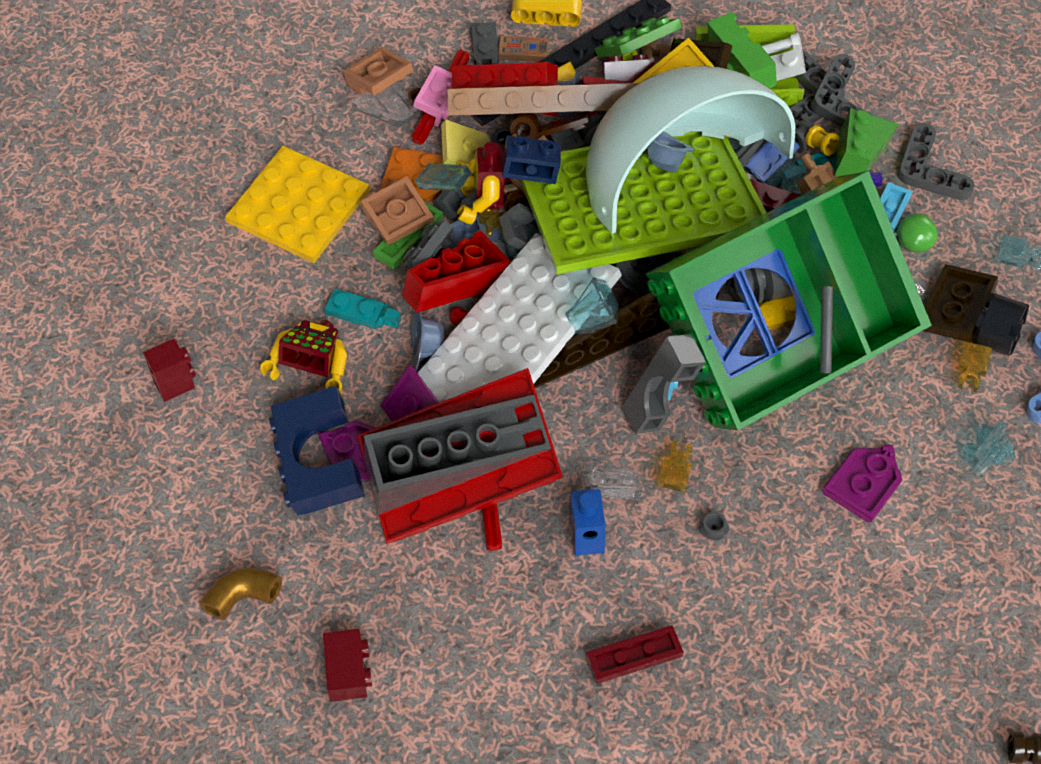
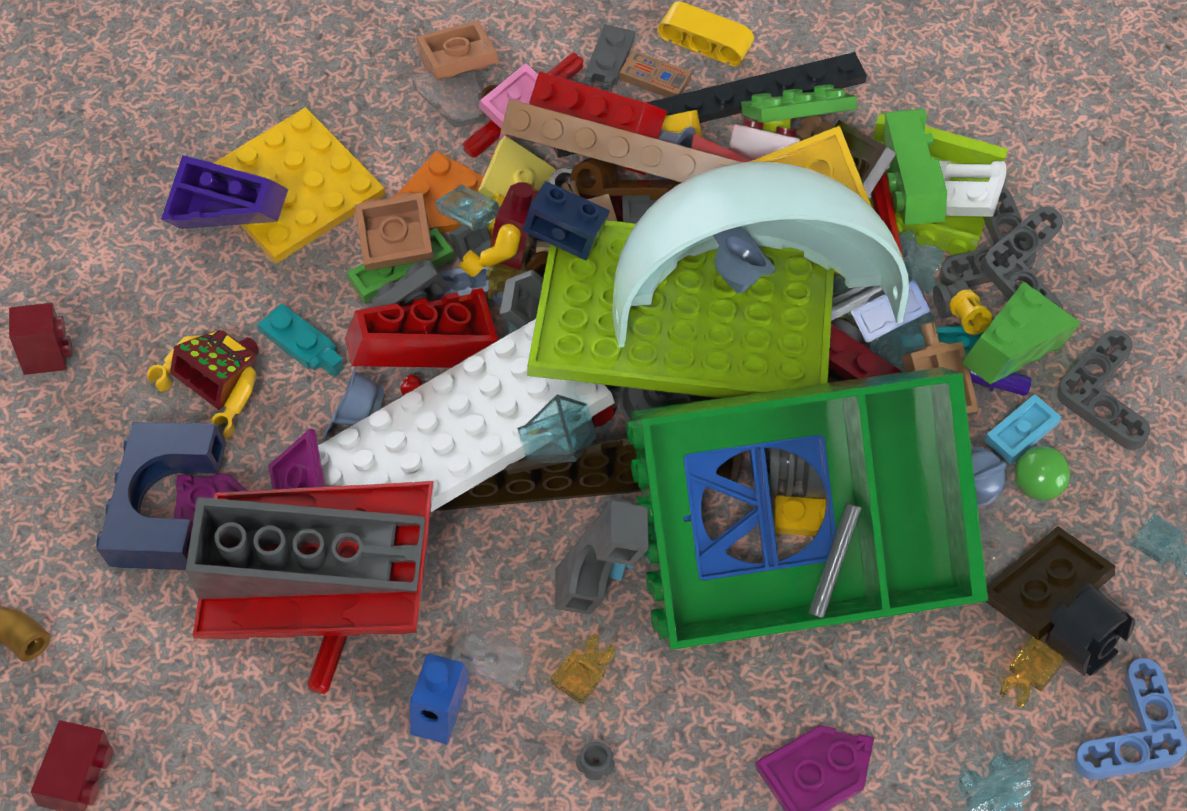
camera: 20 degrees right, 0 degrees up
(258, 224) = (220, 196): none -> dark purple wedge

